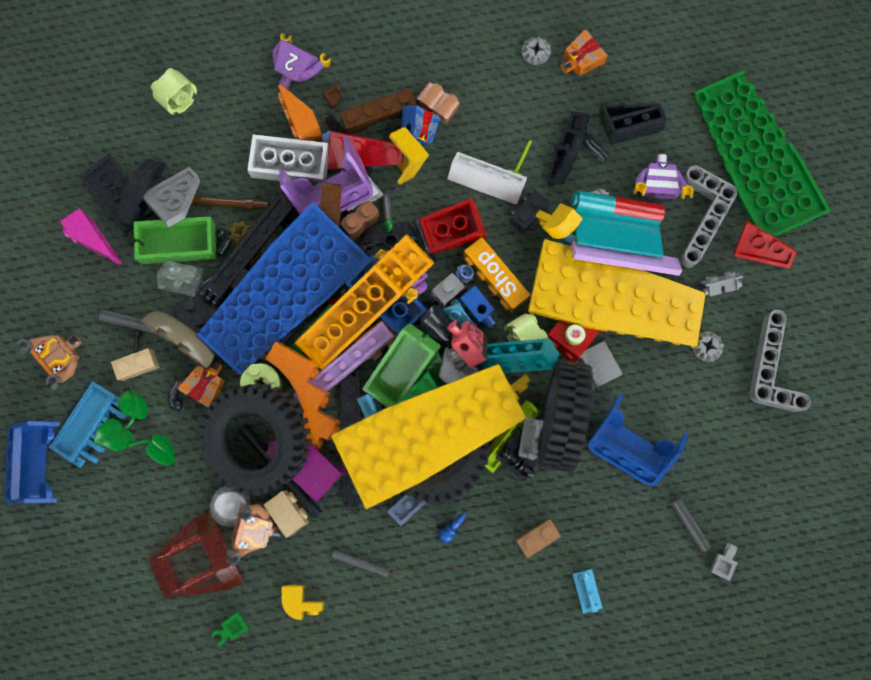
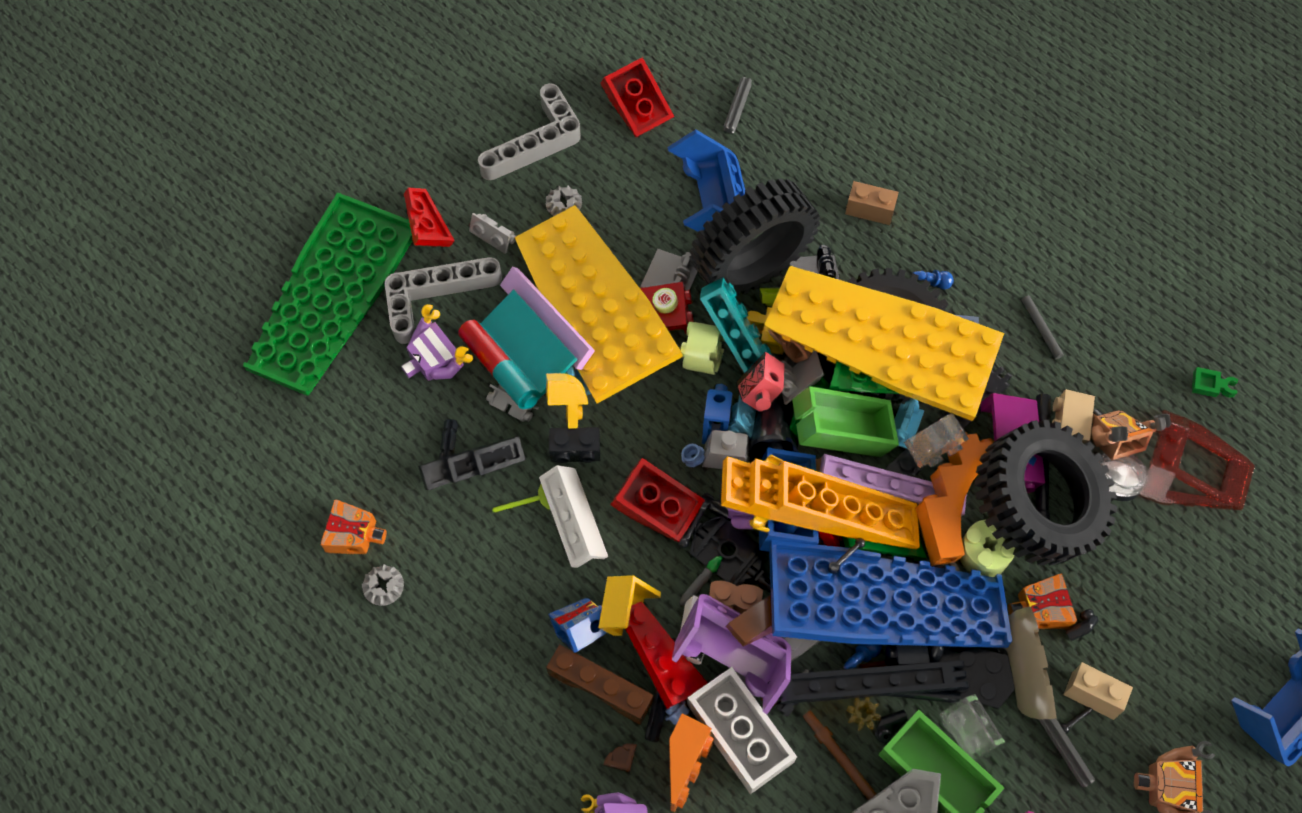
camera: 130 degrees left, 15 degrees down
(83, 423) = (1202, 685): dark azure hinge -> none
(116, 438) = (1191, 615): green plant -> none
(294, 602) = (1133, 345): yellow brick -> none
(322, 275) = (834, 566): none -> black hinge
(341, 407) = (936, 440): none -> clear brick
(438, 102) = (532, 633): nougat brick -> none
(496, 274) = (667, 423): light orange brick -> none
(530, 438) = (803, 261): light grey hinge -> none
(587, 591) = (873, 137): medium azure hinge -> none
(631, 121) = (393, 425): black wedge -> none
(724, 565) = (744, 57): light grey plate -> none
(751, 459) = (637, 97): none -> red slope

